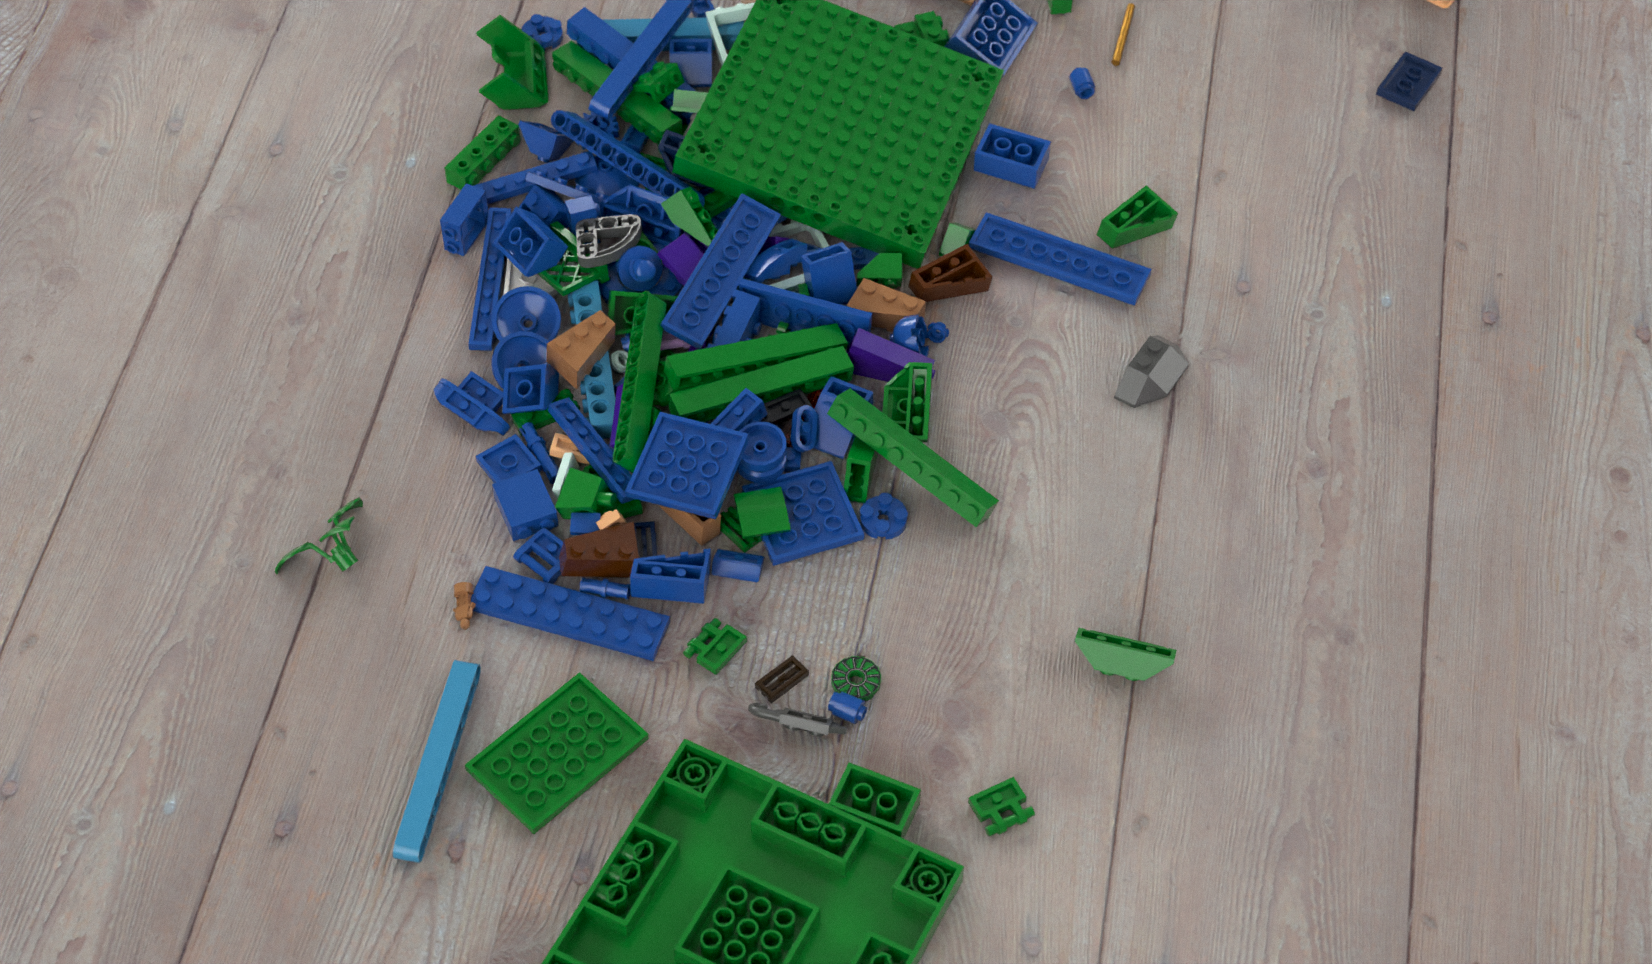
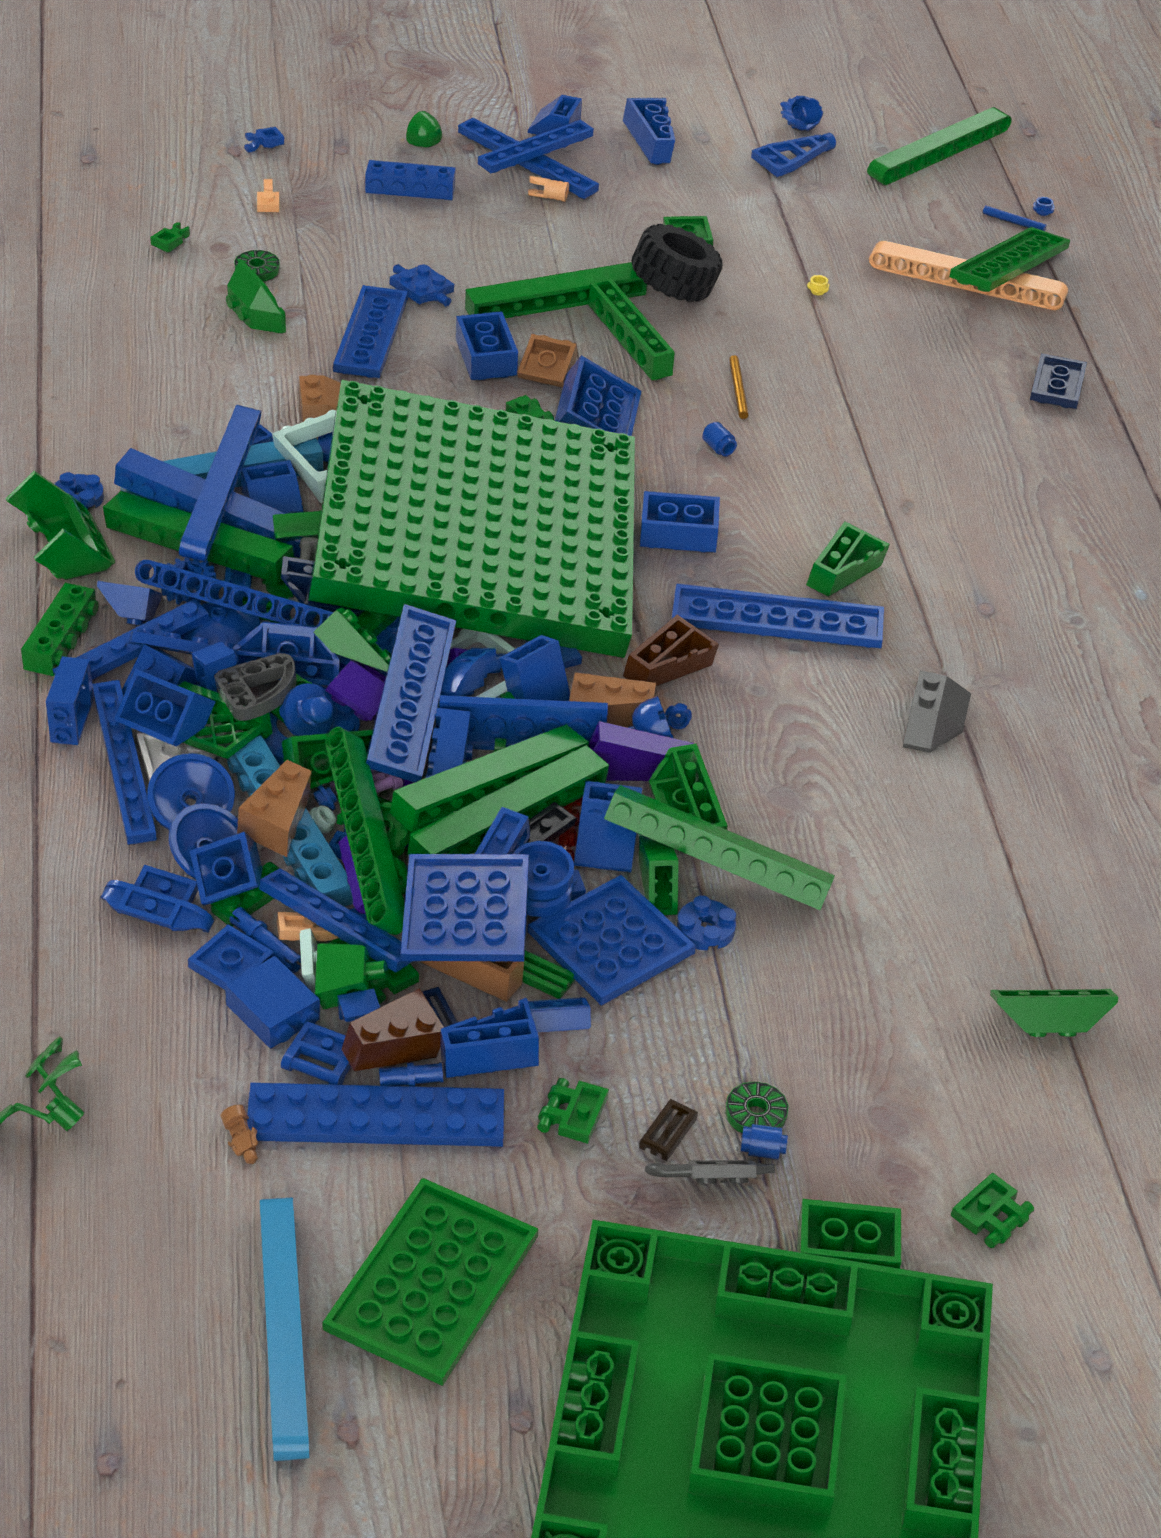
camera: 20 degrees left, 10 degrees down
(610, 519) = (393, 990): light nougat plate -> none
(660, 81) = (251, 507): green bracket -> none
(762, 512) = (568, 946): green slope -> none
(804, 430) = (578, 843): blue plate -> none
(883, 269) = (593, 659): green slope -> none
(955, 237) = (655, 615): green slope -> none

